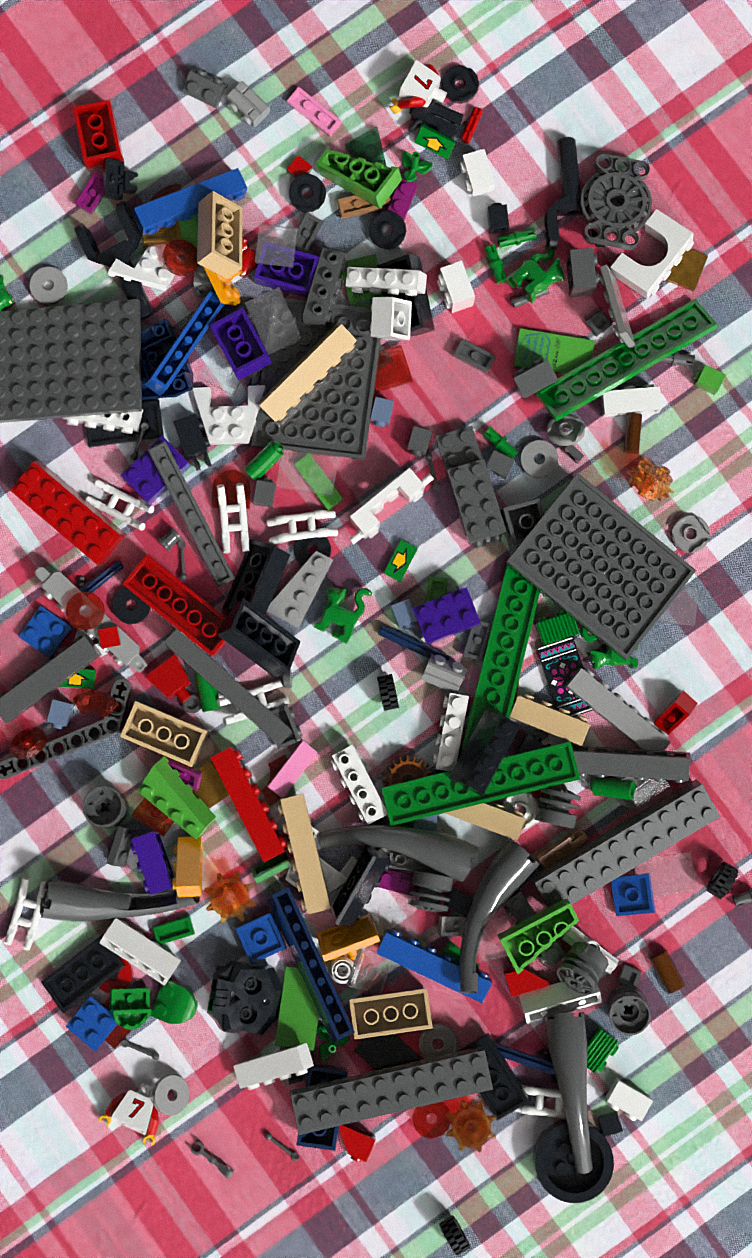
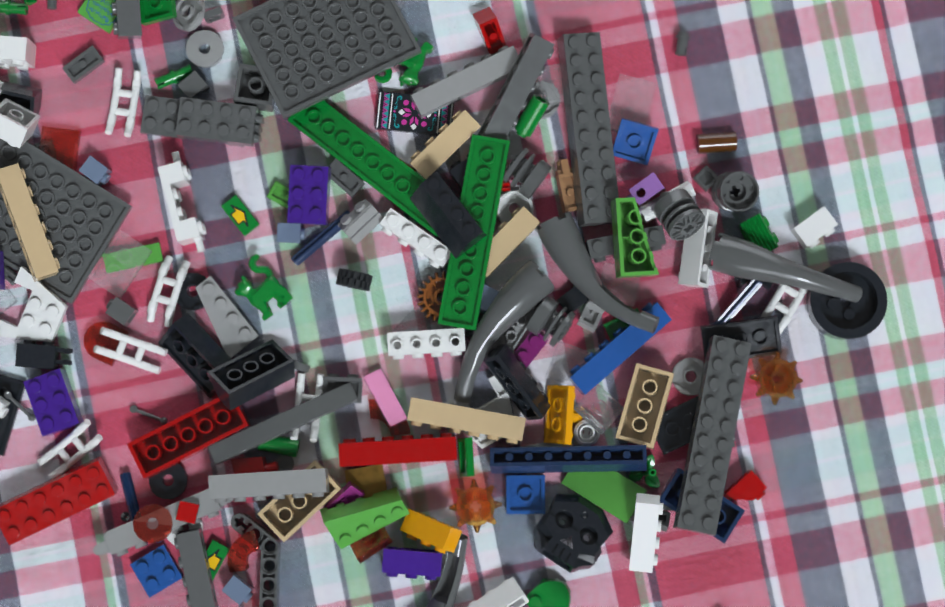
camera: 65 degrees left, 0 degrees up
(94, 807) = (338, 595): dark grey wheel -> none
(121, 846) = (384, 586): dark grey bracket -> none
(166, 699) = (268, 484): none -> light grey brick
(170, 539) = (123, 417): dark grey bush -> none
(173, 930) = (483, 571): green tile -> none
(191, 513) = (108, 386): dark grey tile -> none
(264, 460) = (90, 297): green brick -> none
(294, 1156) = (734, 551): dark grey hinge -> none
(419, 441) = (138, 149): dark grey brick -> none
(436, 487) = (188, 153): dark grey hinge -> none
(436, 1129) = (766, 412): clear red tile -> none
(446, 402) = (118, 92): none -> white piece
(454, 1235) = (866, 436): black tyre -> none
(523, 982) = (668, 275): red slope -> none
(556, 628) = (365, 101): green brick -> none
(598, 928) = (652, 188): none -> medium lavender torso
(610, 1123) = (828, 253): black tile -> none
(722, 880) = (657, 56): black tyre -> none

